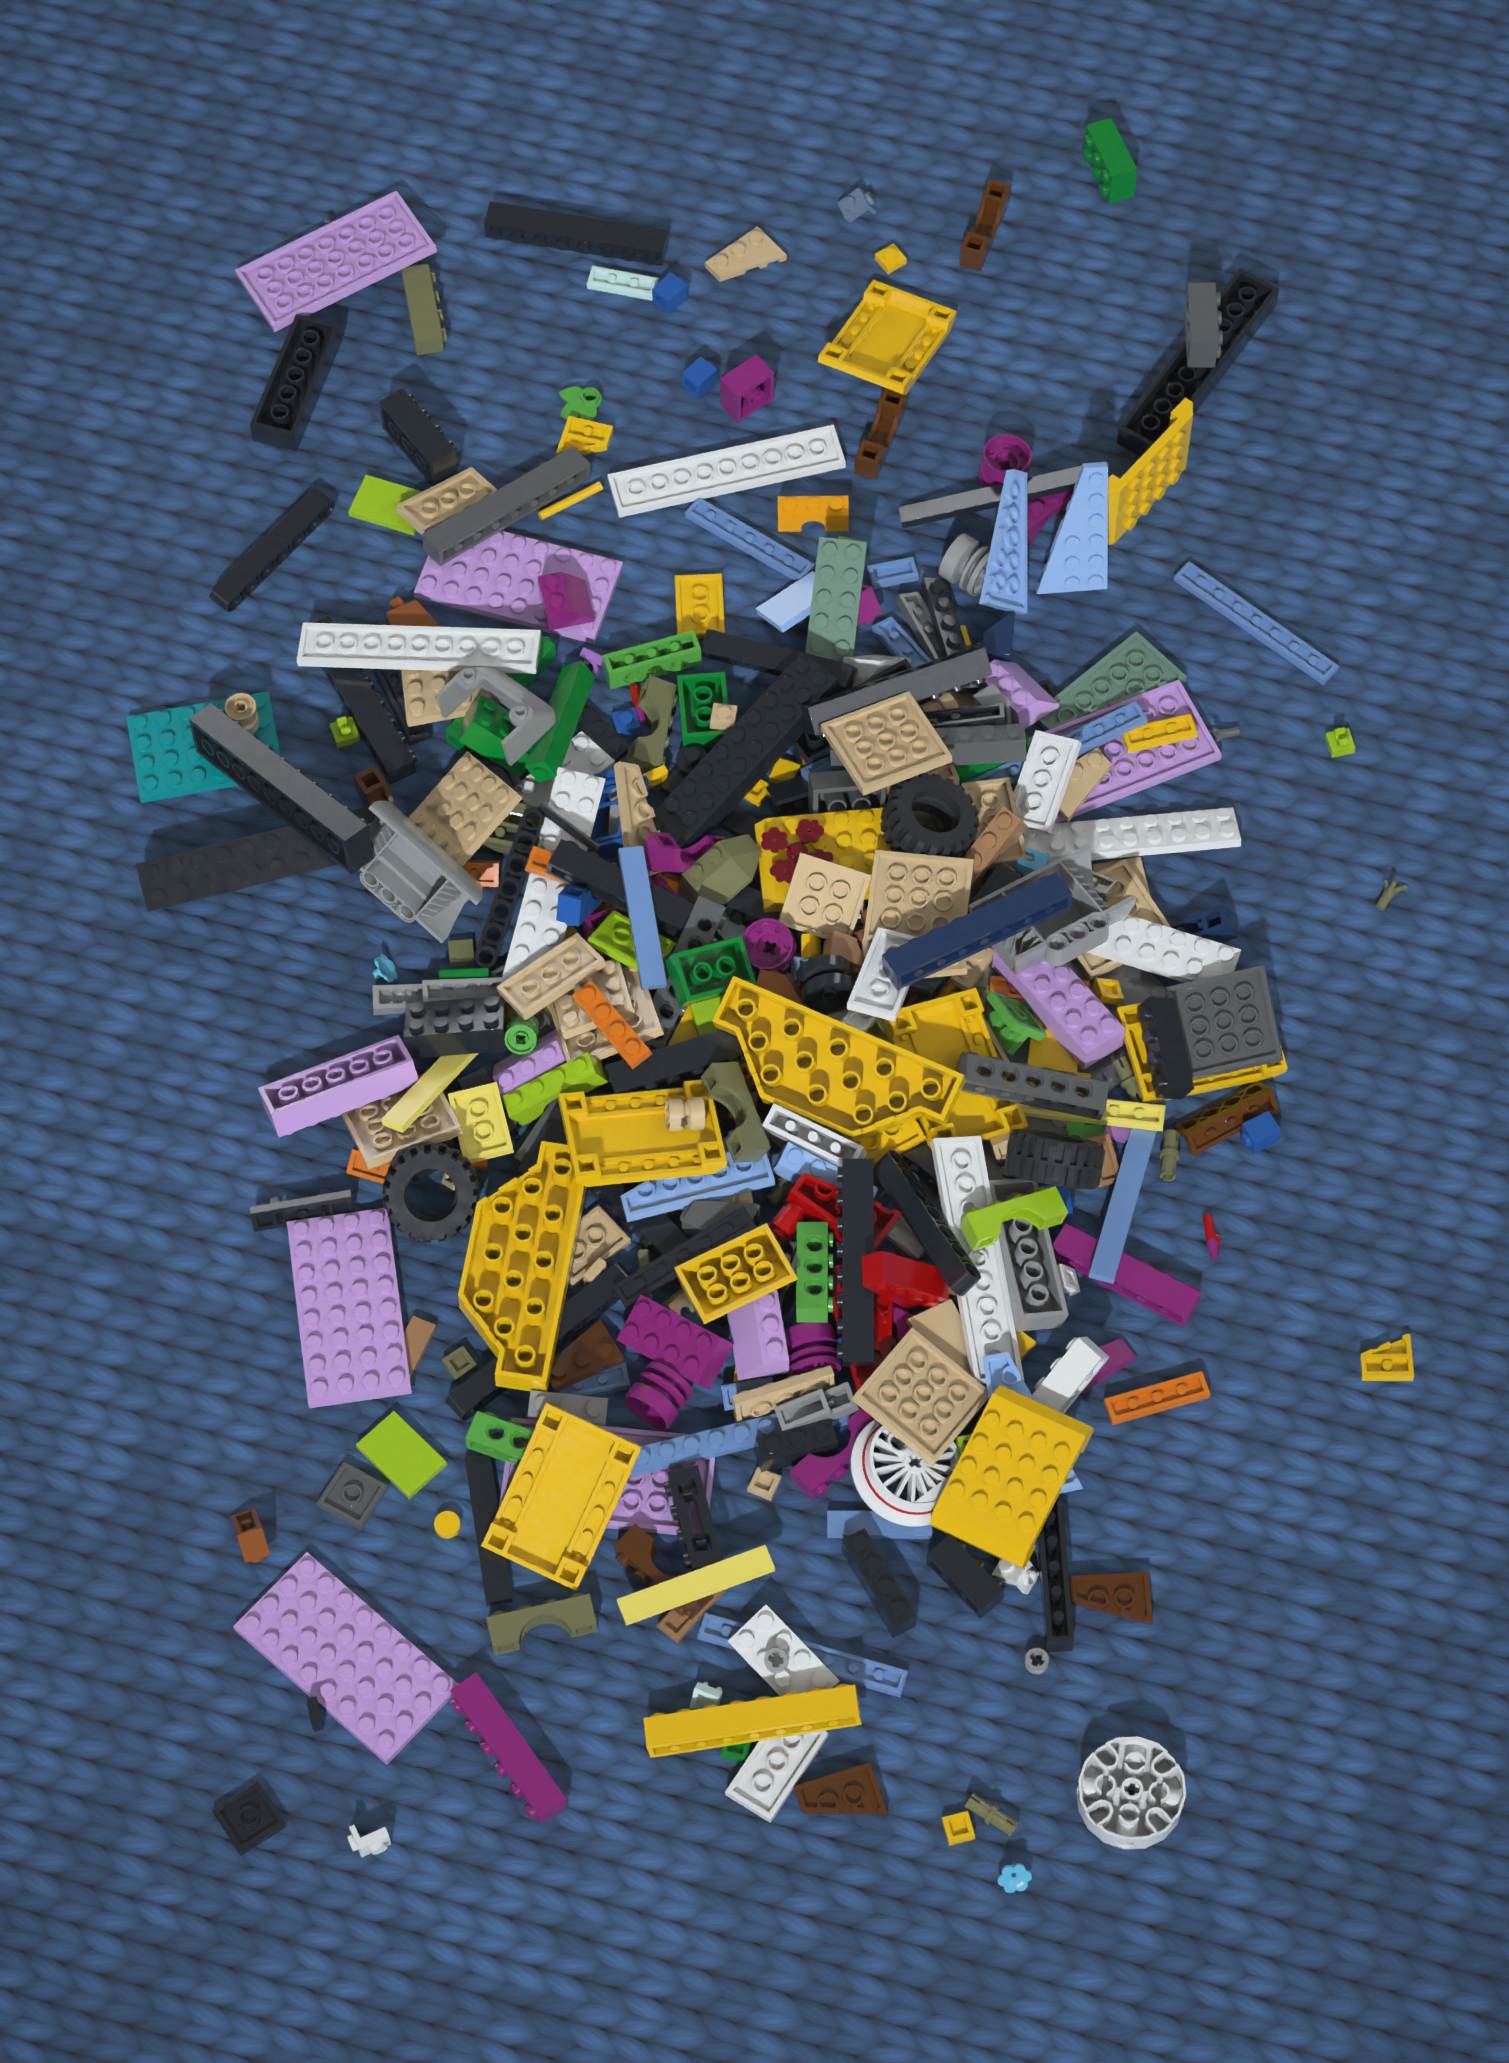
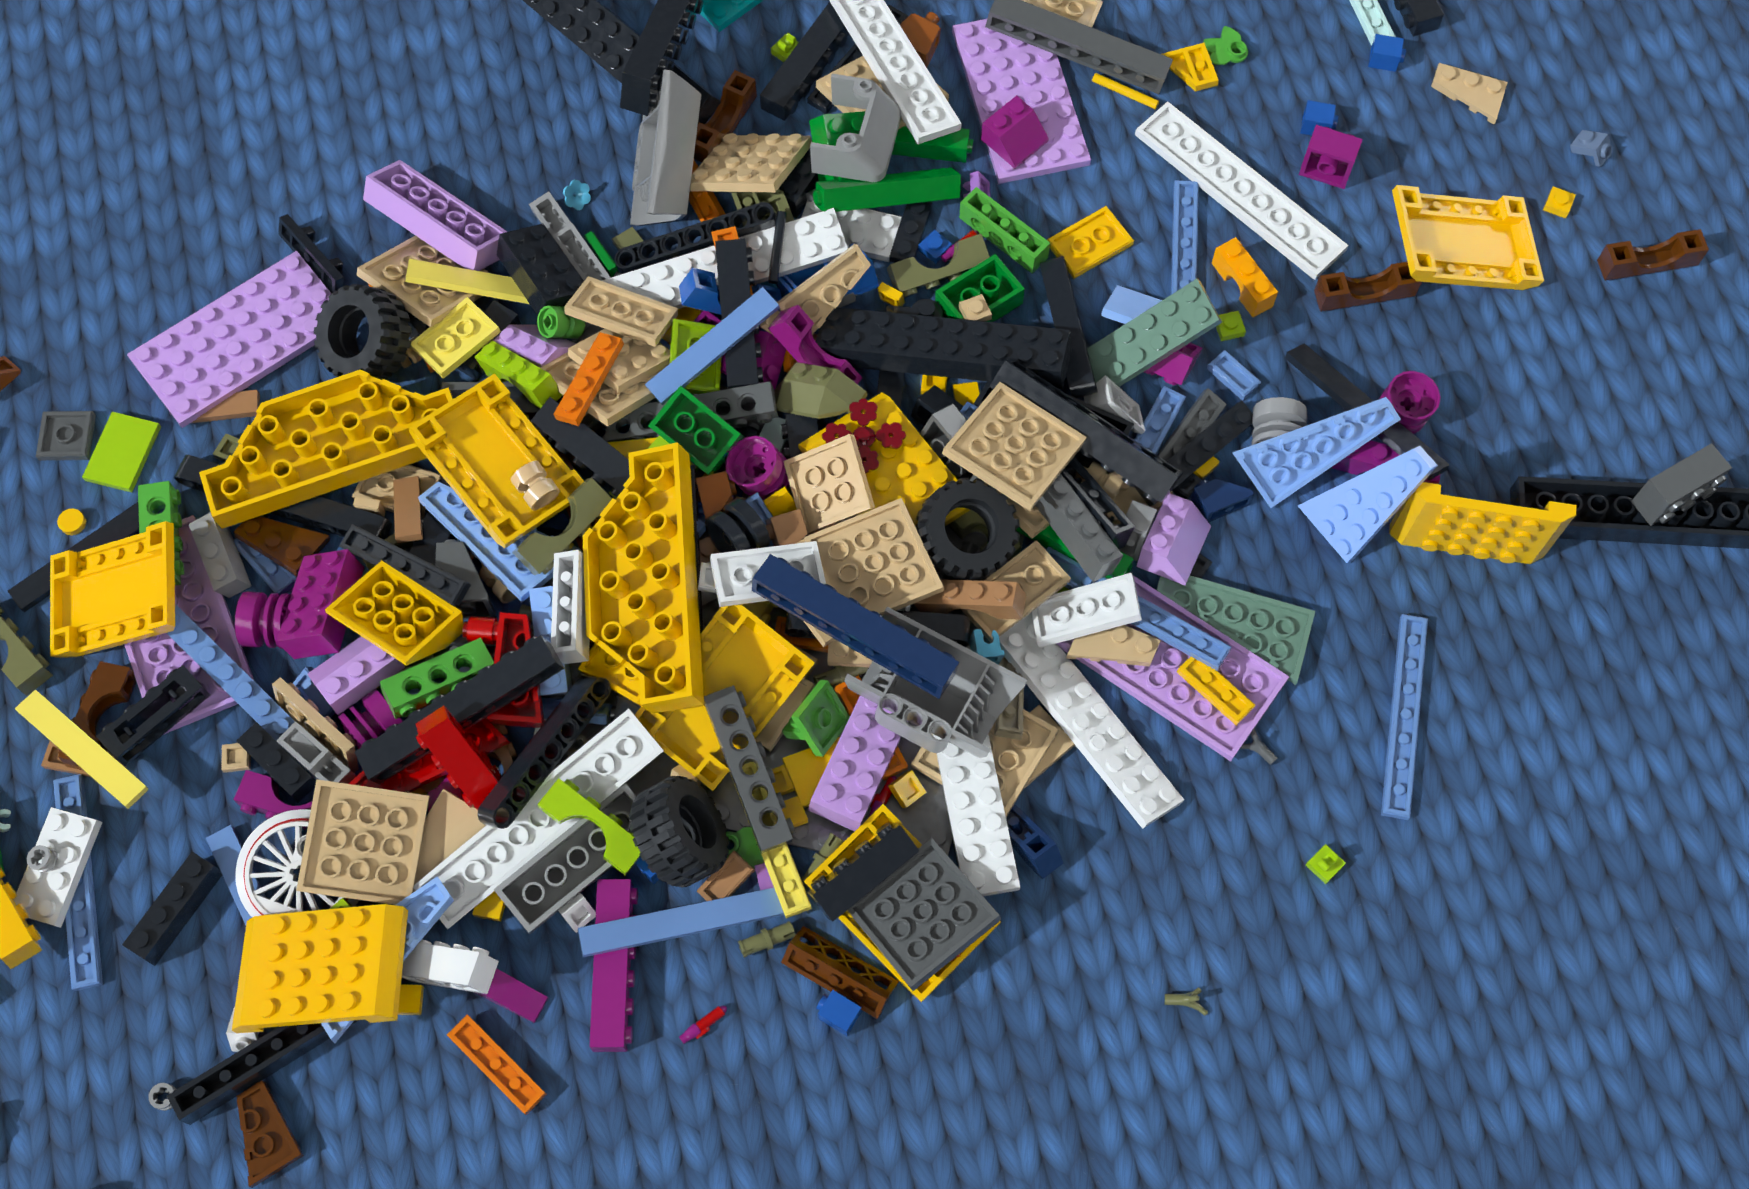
camera: 60 degrees right, 5 degrees up
(623, 1238) = (407, 509): none -> medium nougat tile
(966, 1576) = (215, 986): black brick -> none

